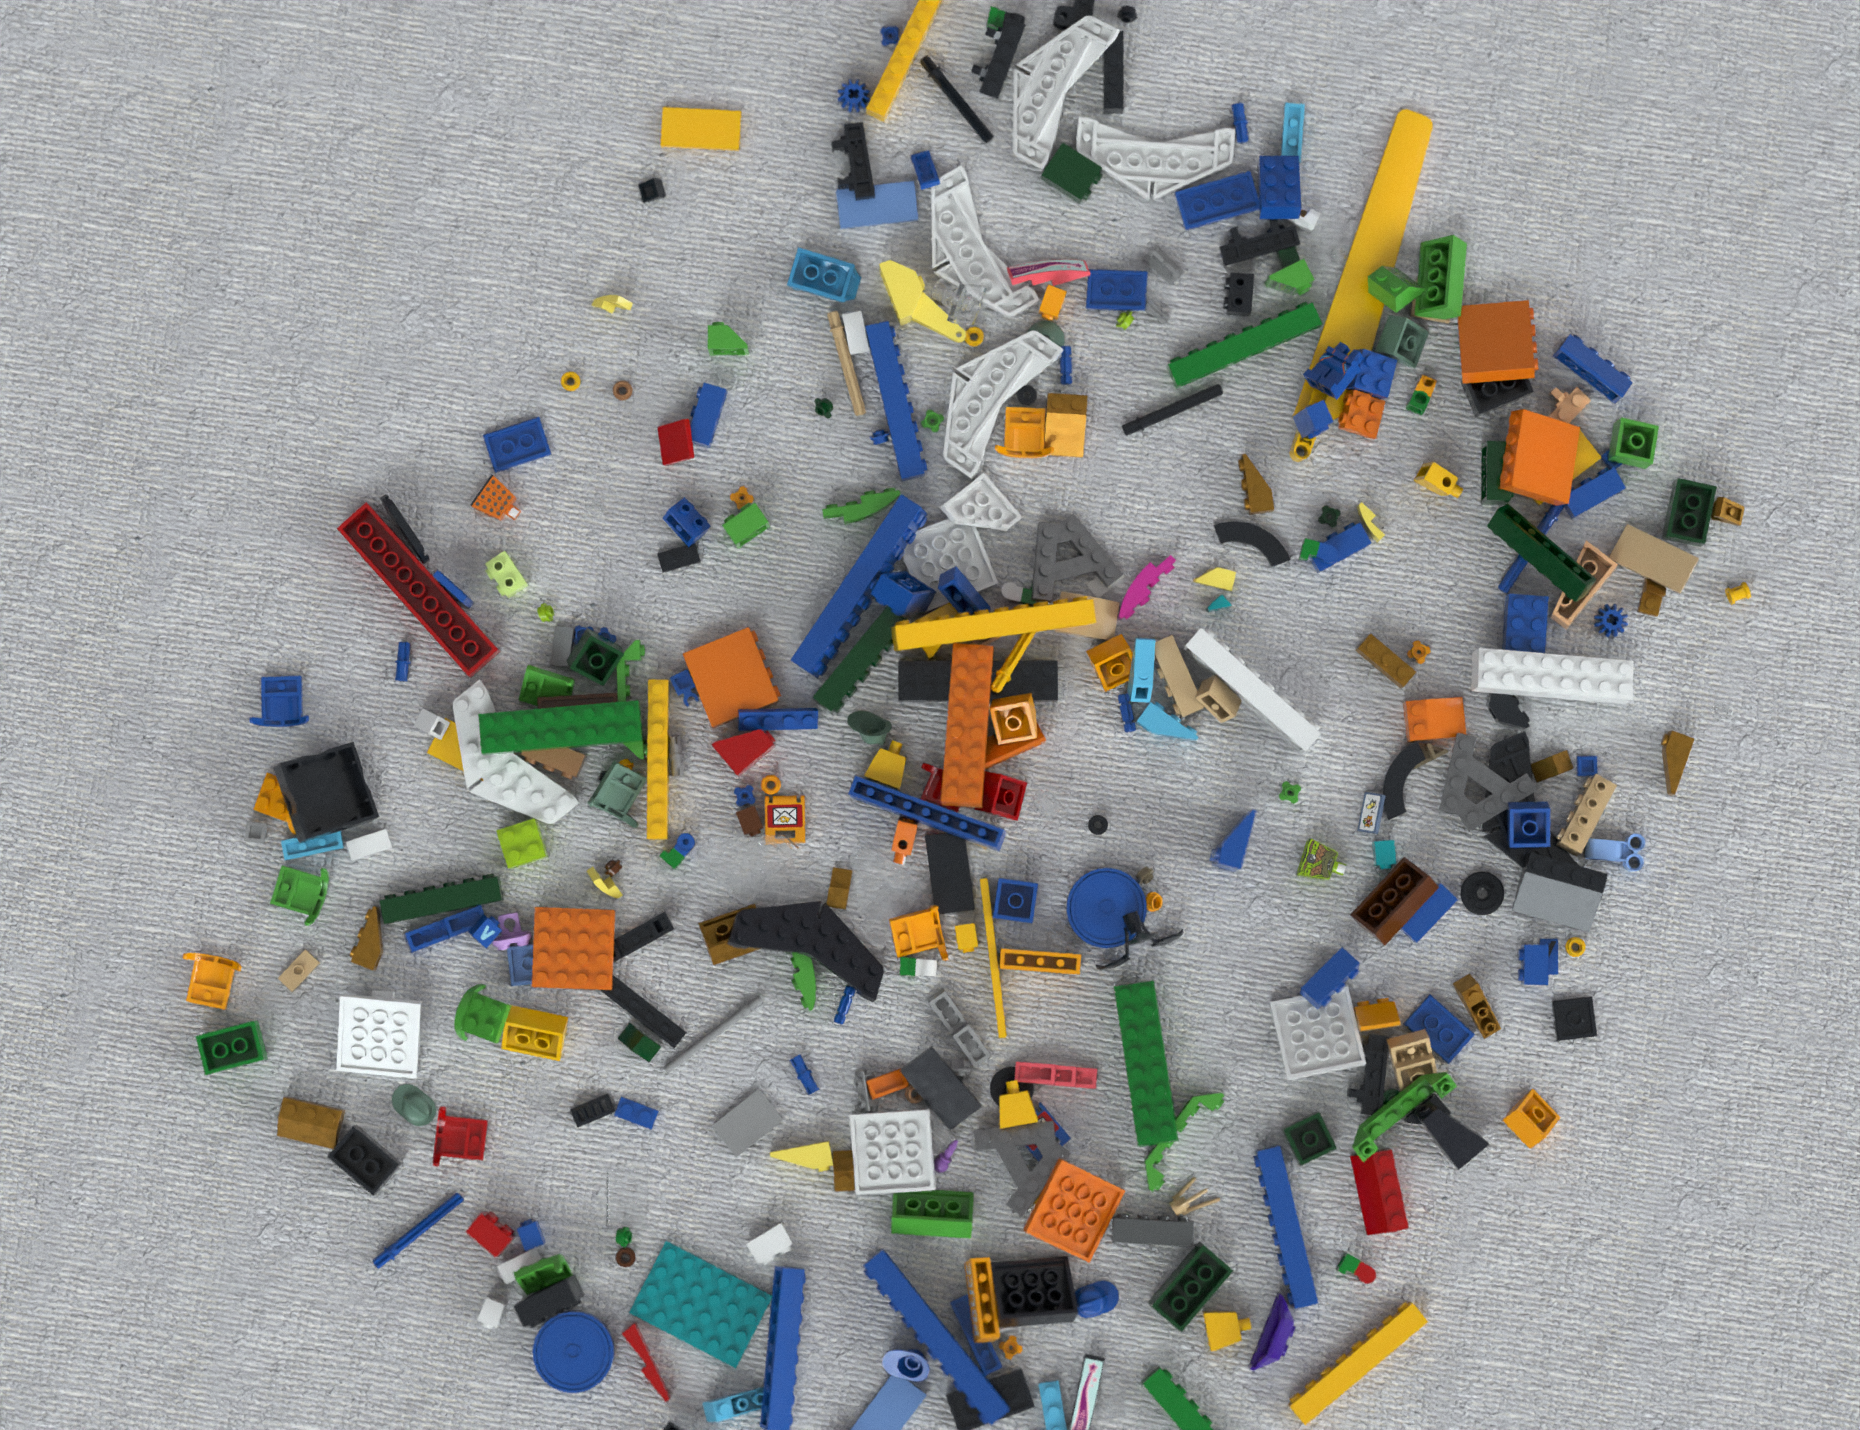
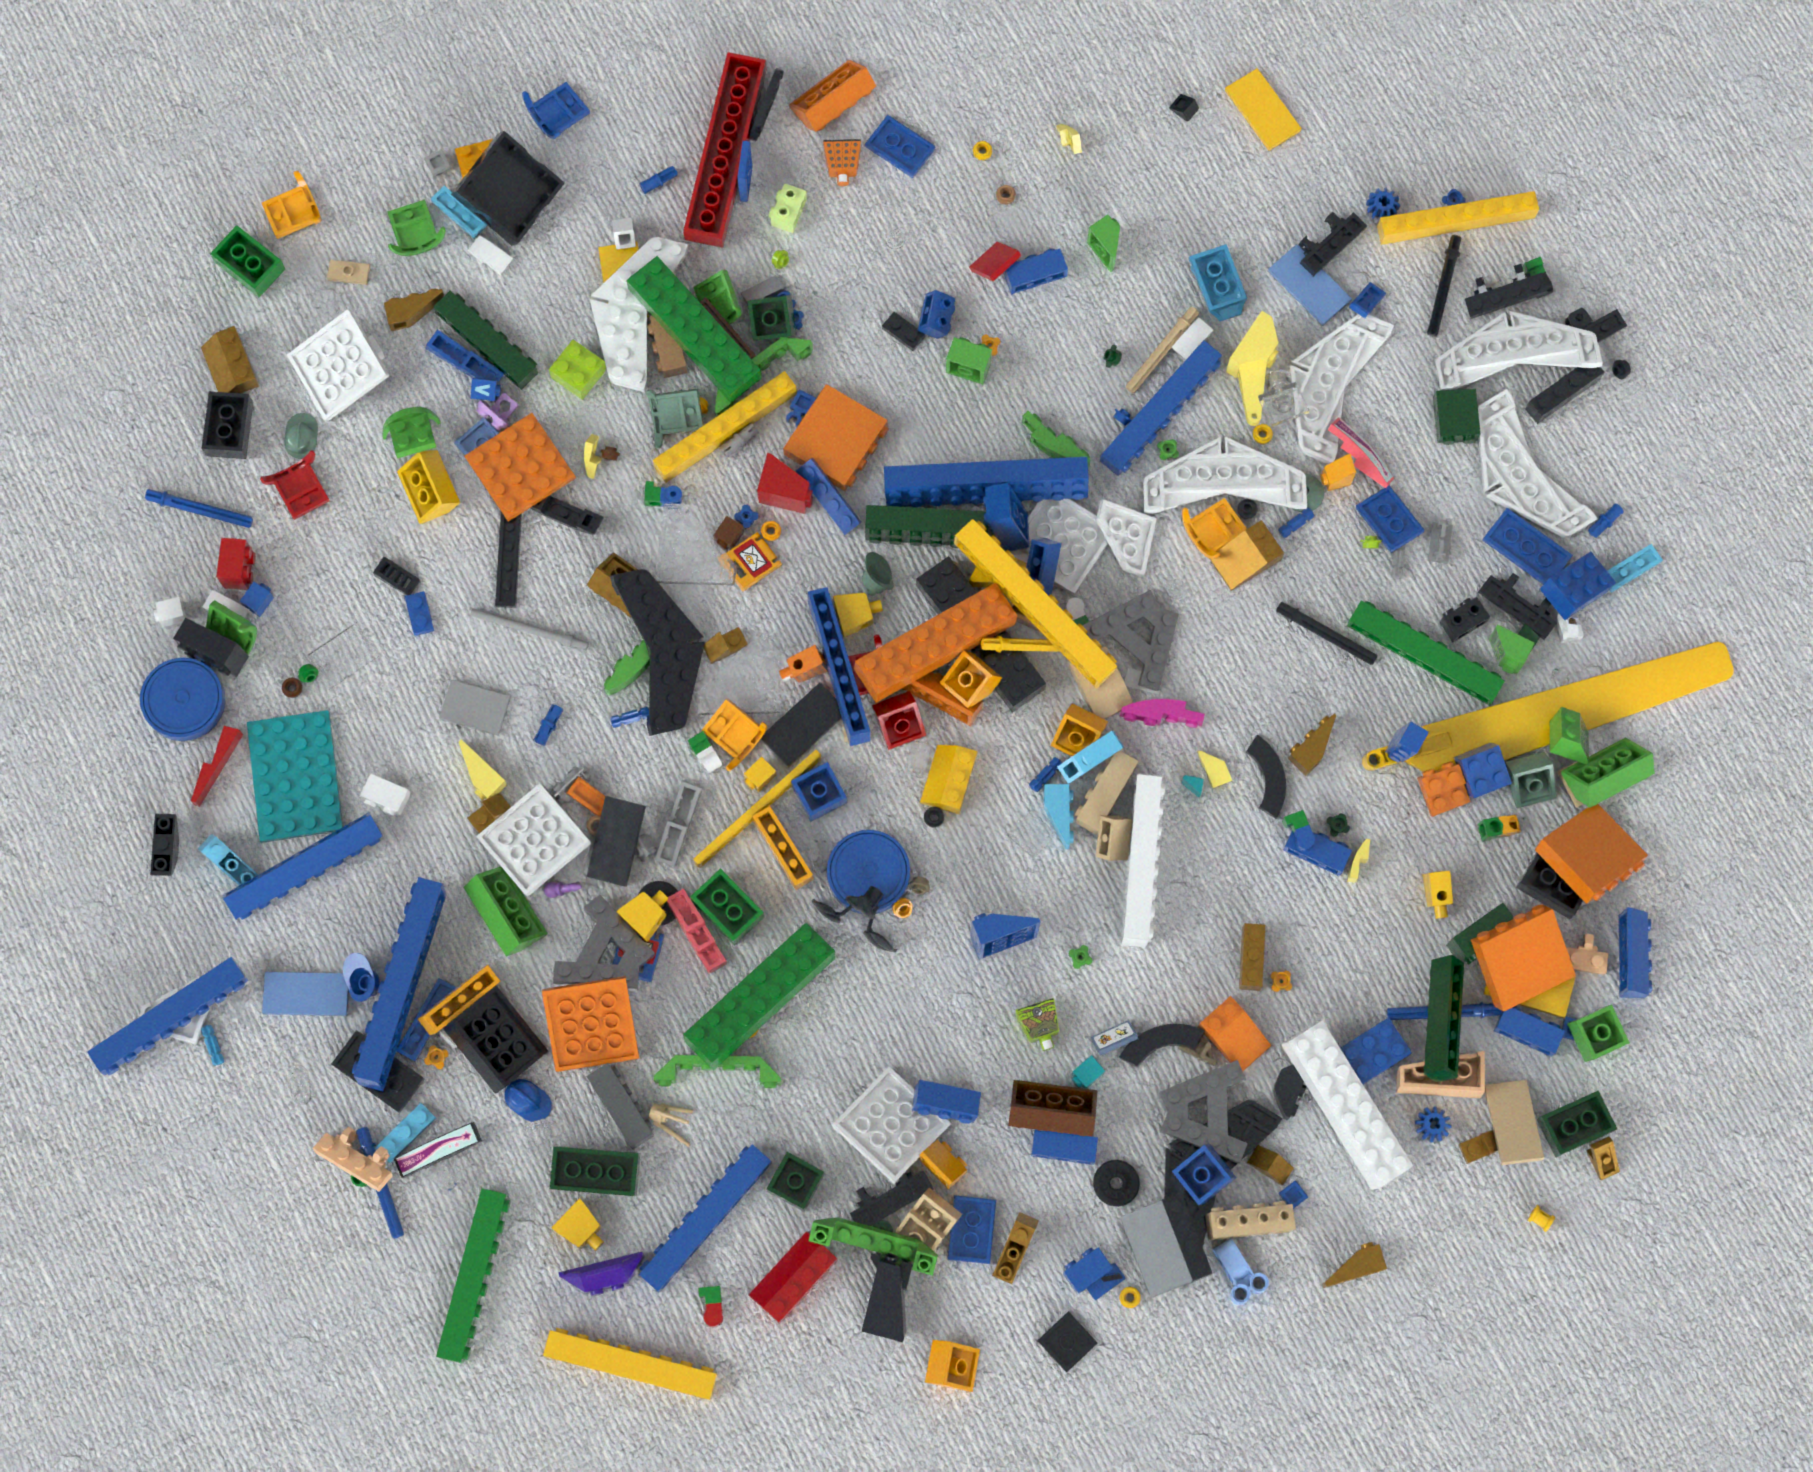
camera: 55 degrees right, 10 degrees down
(433, 468) = (833, 95): none -> orange slope
(639, 1042) = (479, 575): dark green slope -> none
(1056, 1038) = (727, 906): none -> green brick
(1075, 790) = (949, 777): none -> yellow slope
(1334, 370) = (1462, 734): blue hips -> none

